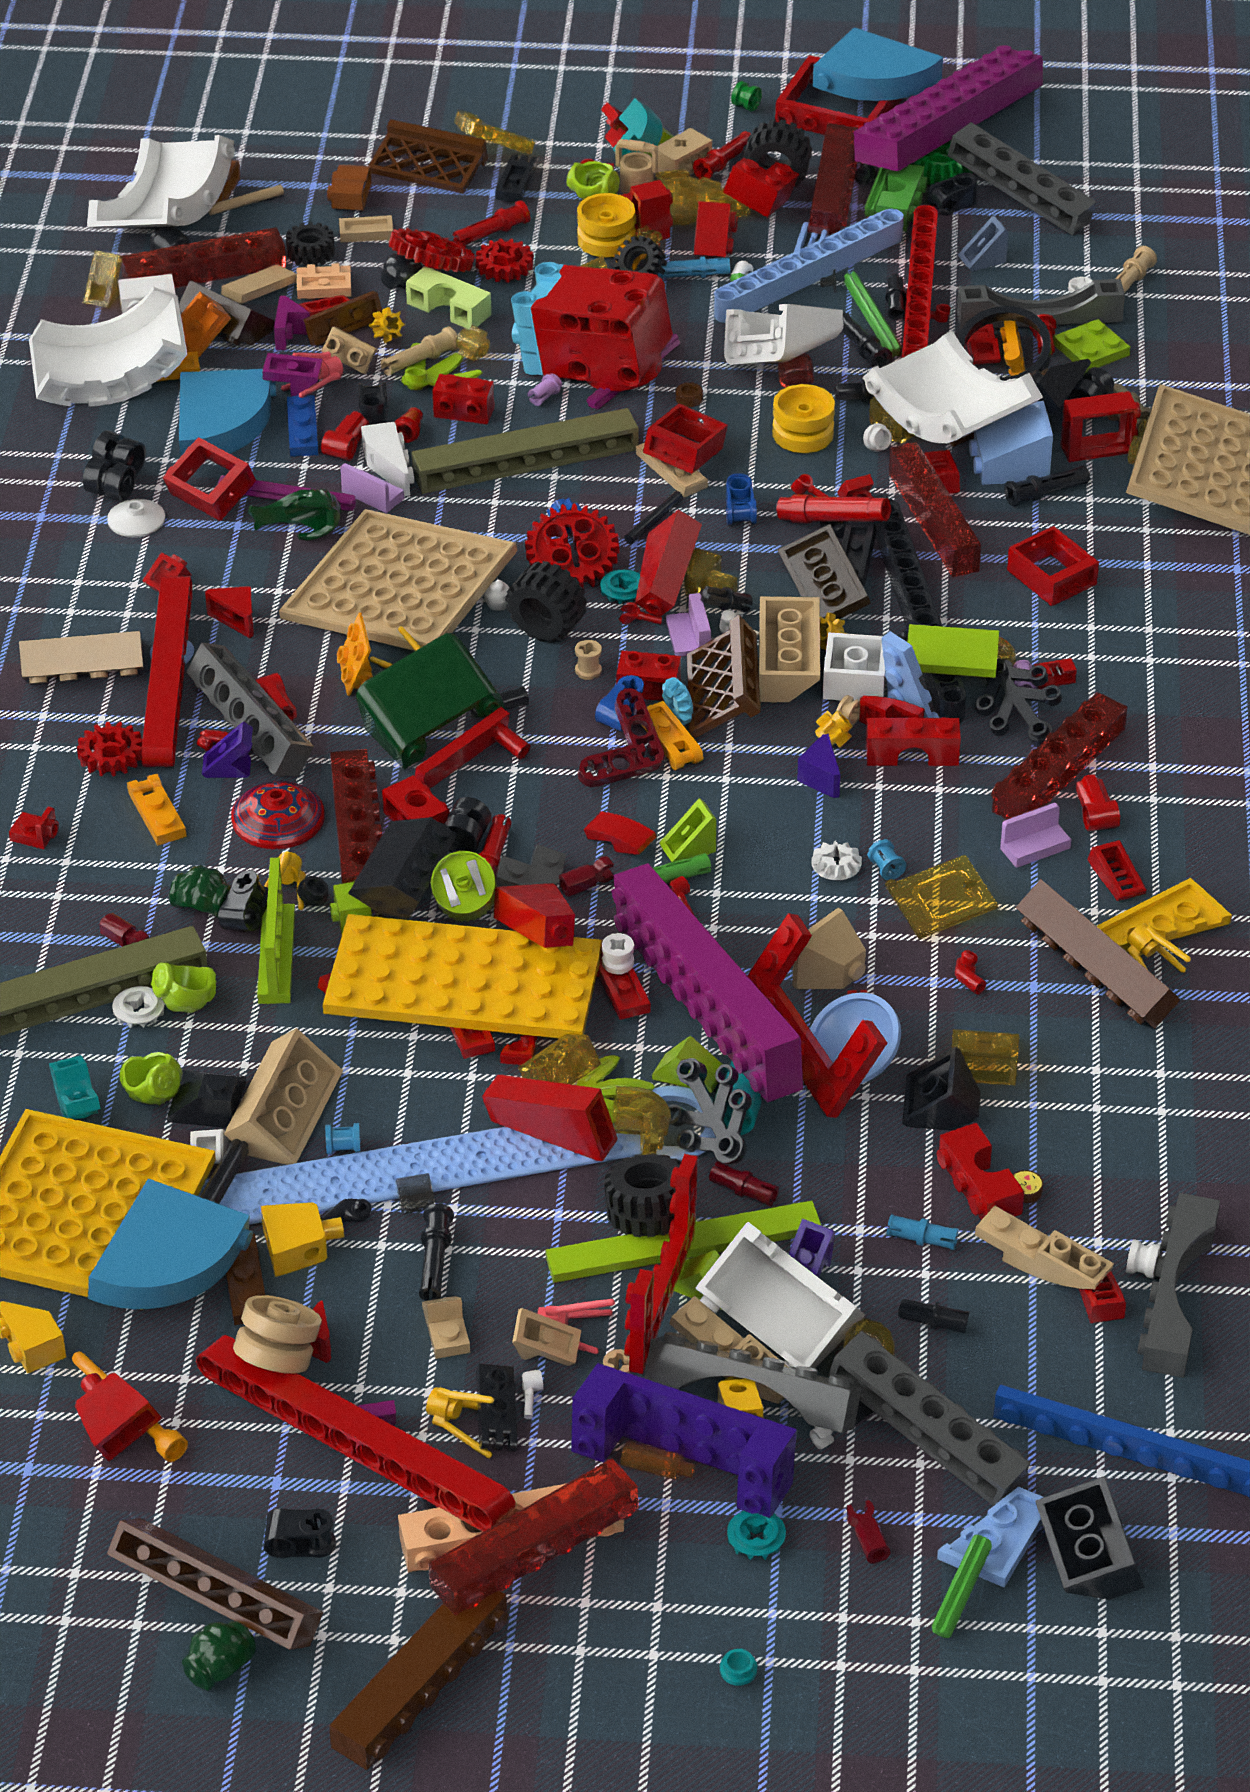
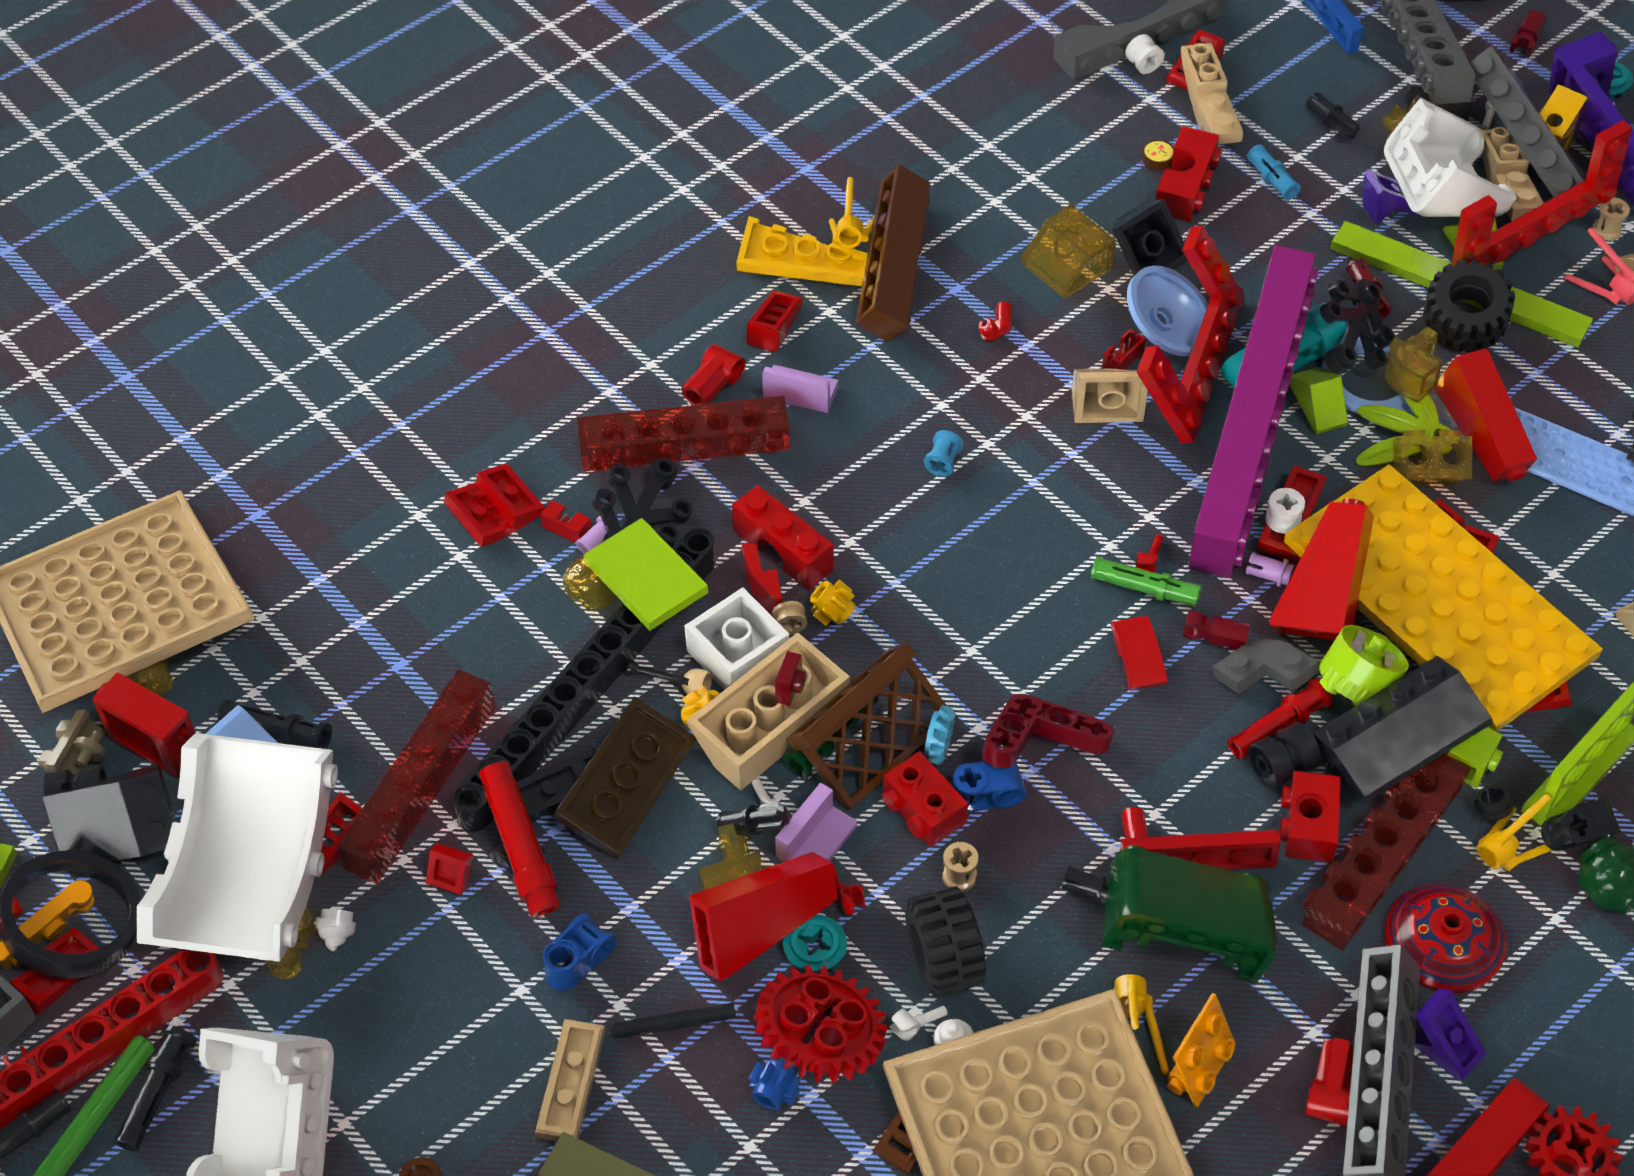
camera: 135 degrees left, 10 degrees up
(156, 810) = (1574, 1037): light orange plate -> none
(208, 737) = (1434, 1082): red arm -> none
(595, 932) = (1271, 569): none -> lavender pin
(674, 737) = (976, 720): light orange plate -> none
(679, 451) = (521, 1047): red window -> none
(691, 834) = (1084, 595): lime slope -> none
(784, 634) = (790, 678): none -> dark red plate
(803, 418) = (380, 999): yellow wheel -> none
(805, 483) = (483, 921): red hand -> none
(819, 768) = (887, 579): dark purple slope -> none
(825, 866) = (981, 502): white gear -> none
(852, 391) = (257, 1006): black axle -> none
(903, 673) = (731, 564): light blue wing -> none
(938, 899) = (939, 396): clear yellow container -> none
(1076, 578) = (418, 594): red window -> none
(1112, 654) = (494, 504): none -> red slope

